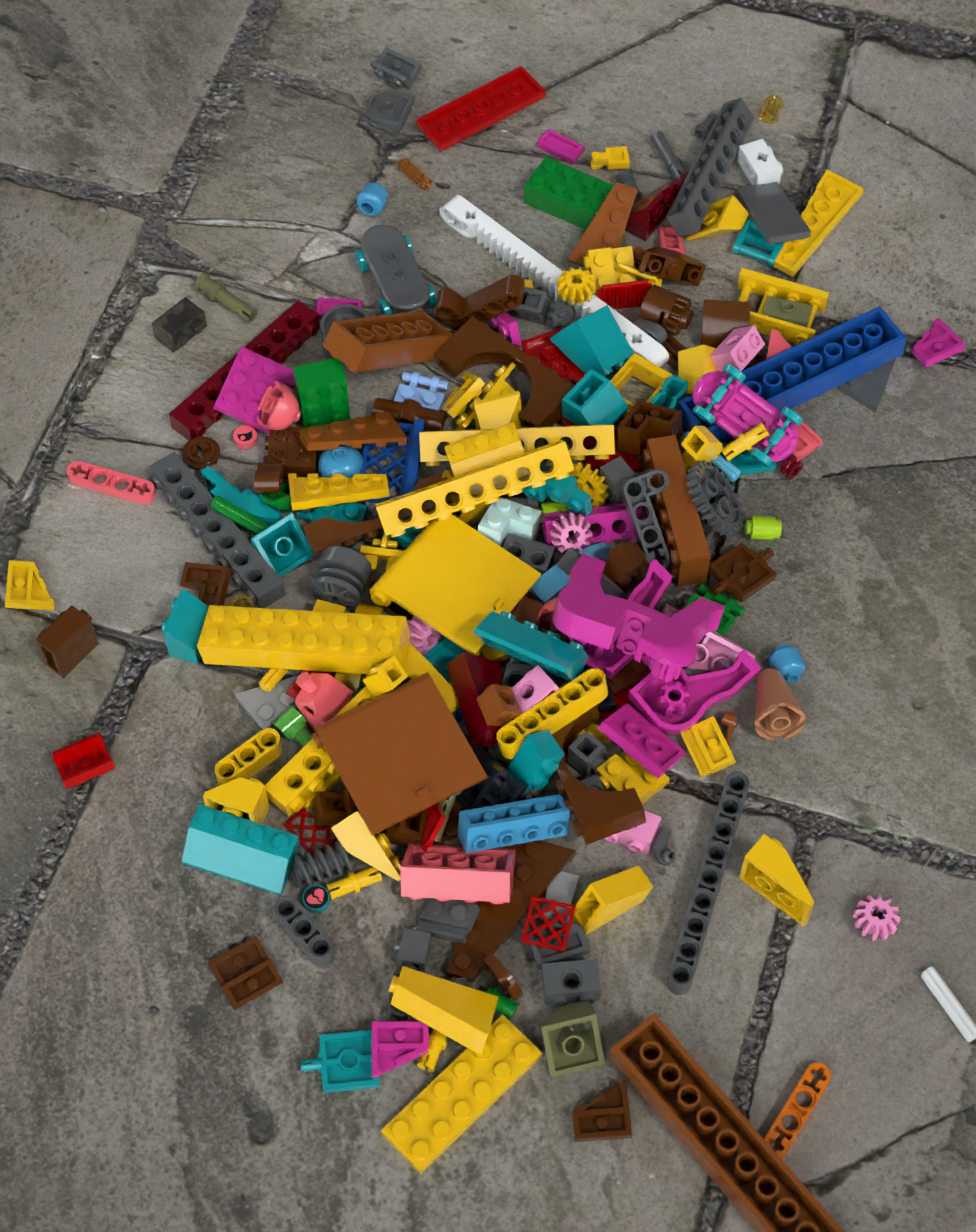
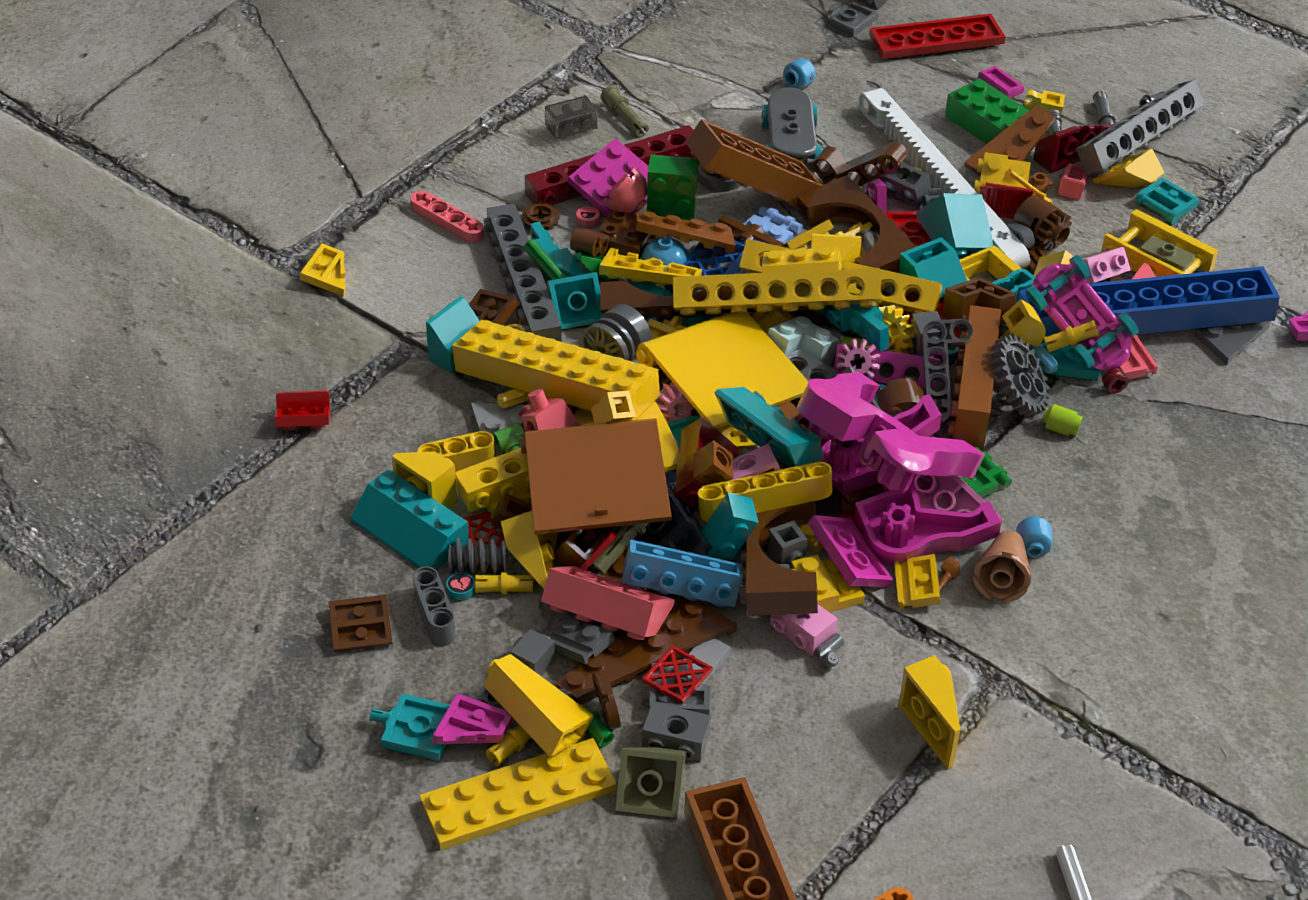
camera: 20 degrees right, 15 degrees down
(67, 640) = (339, 313): reddish brown brick -> none
(414, 174) = (849, 68): clear orange axle -> none
(576, 286) = (960, 176): yellow gear -> none
(604, 1117) = (651, 860): reddish brown wing -> none
(611, 898) = (752, 672): yellow slope -> none
(672, 266) = (1064, 190): reddish brown slope -> none
(708, 892) = (859, 695): dark grey beam -> none
(721, 319) = (1097, 238): reddish brown slope -> none
(741, 572) = (1022, 448): reddish brown plate -> none
(759, 163) = (1194, 141): white brick -> none
(771, 109) = (1229, 100): clear yellow bush -> none
(773, 213) = (1189, 178): dark grey tile -> none
(823, 212) = (1256, 186): yellow wing -> none
(873, 925) = (1029, 781): bright pink gear -> none

